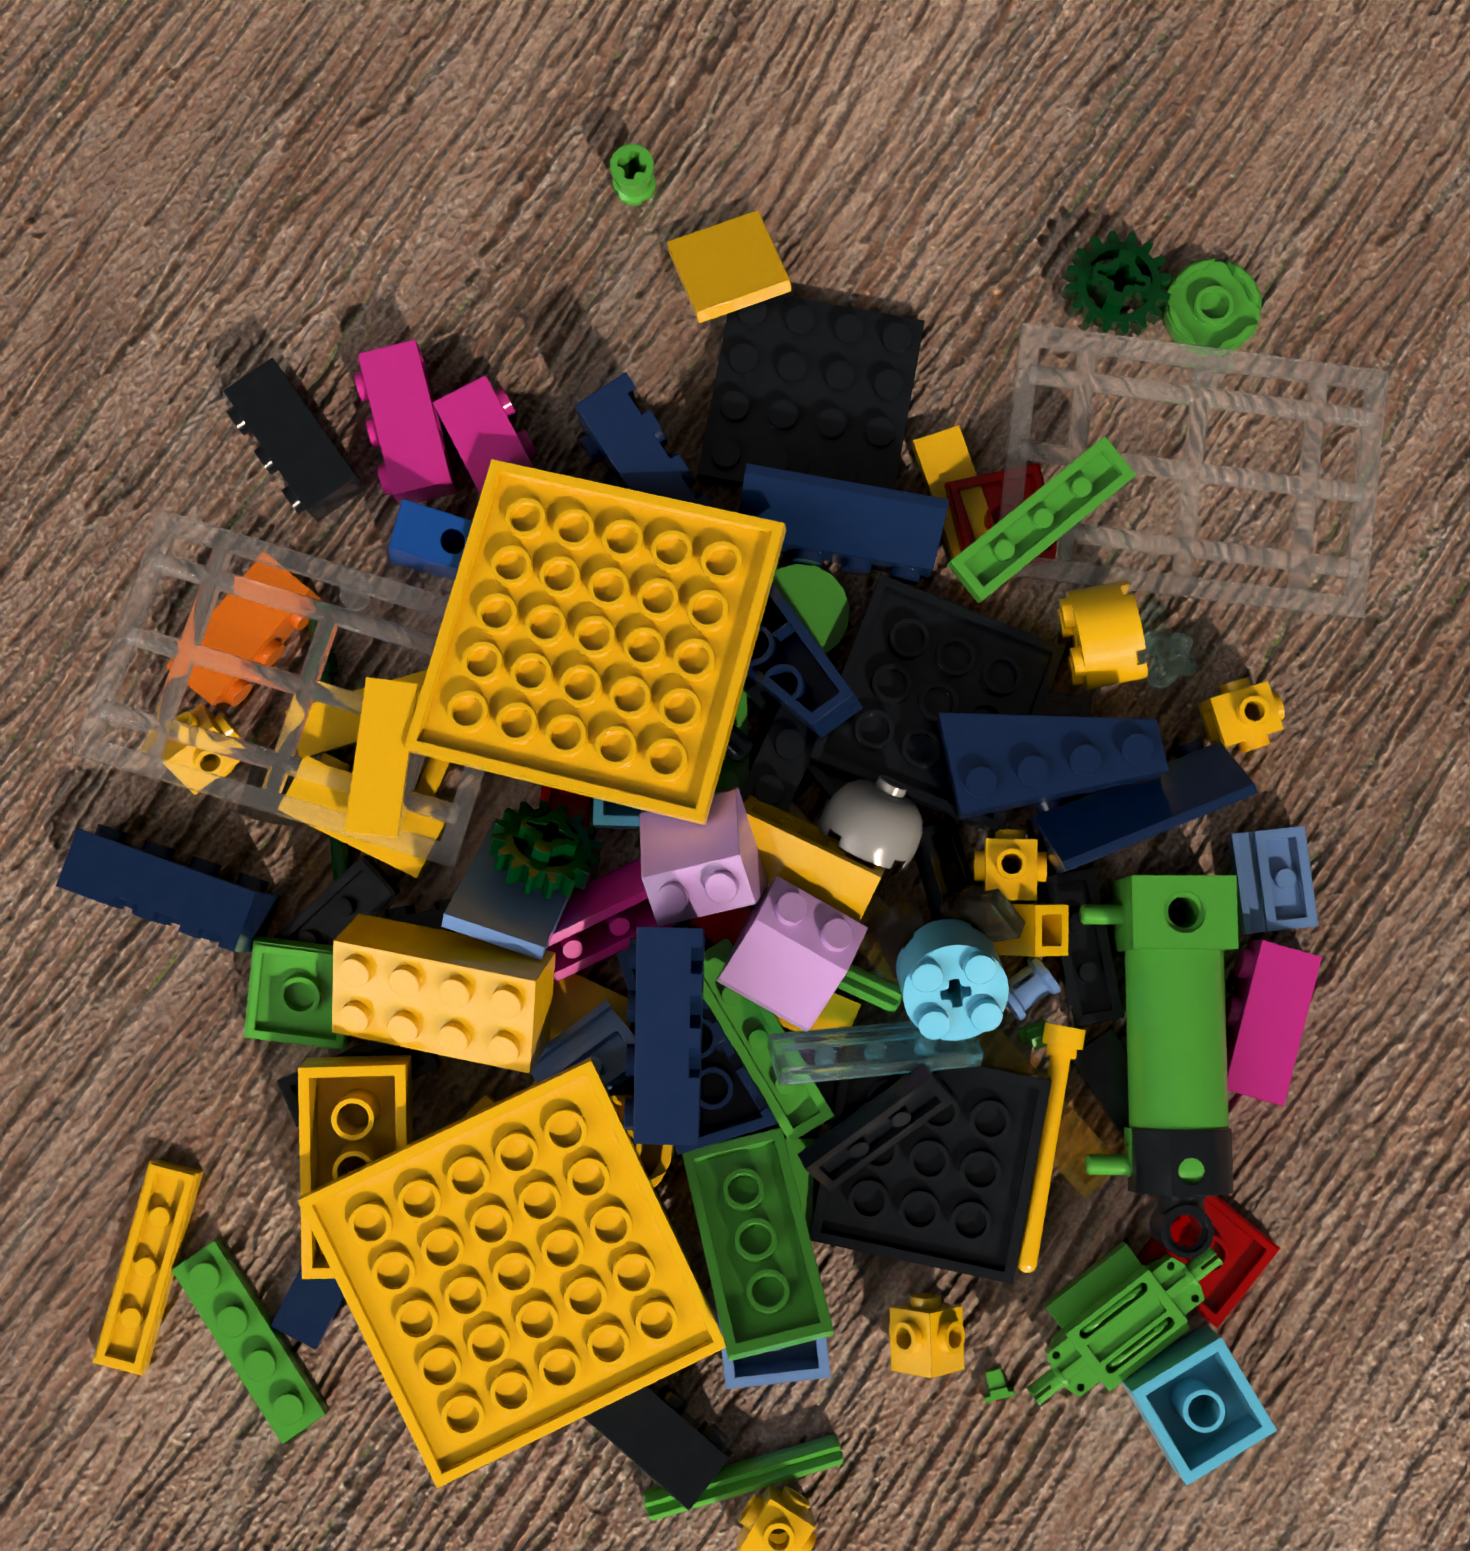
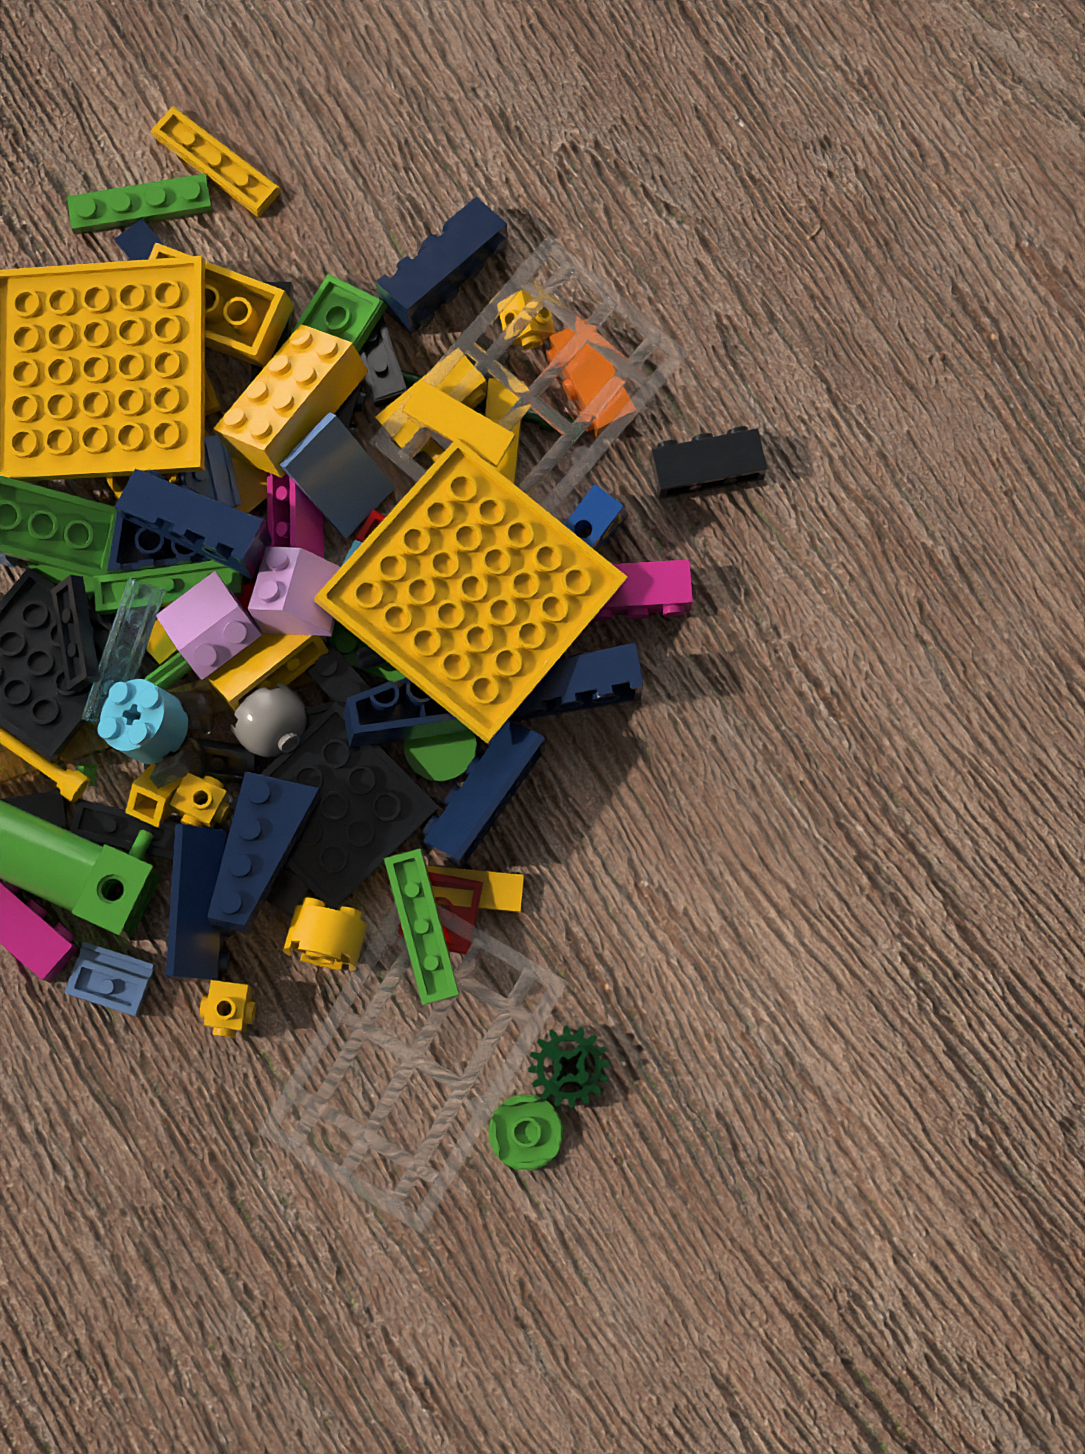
camera: 115 degrees right, 5 degrees down
(405, 423) = (687, 536): dark pink brick -> none
(545, 849) = (337, 505): dark green gear -> none
(622, 164) = (793, 755): bright green bush -> none
(729, 266) = (701, 802): yellow tile -> none
(811, 392) = (585, 820): black plate -> none
(1030, 987) = (118, 779): medium blue bush -> none
(1170, 657) = (293, 982): clear light blue piece -> none

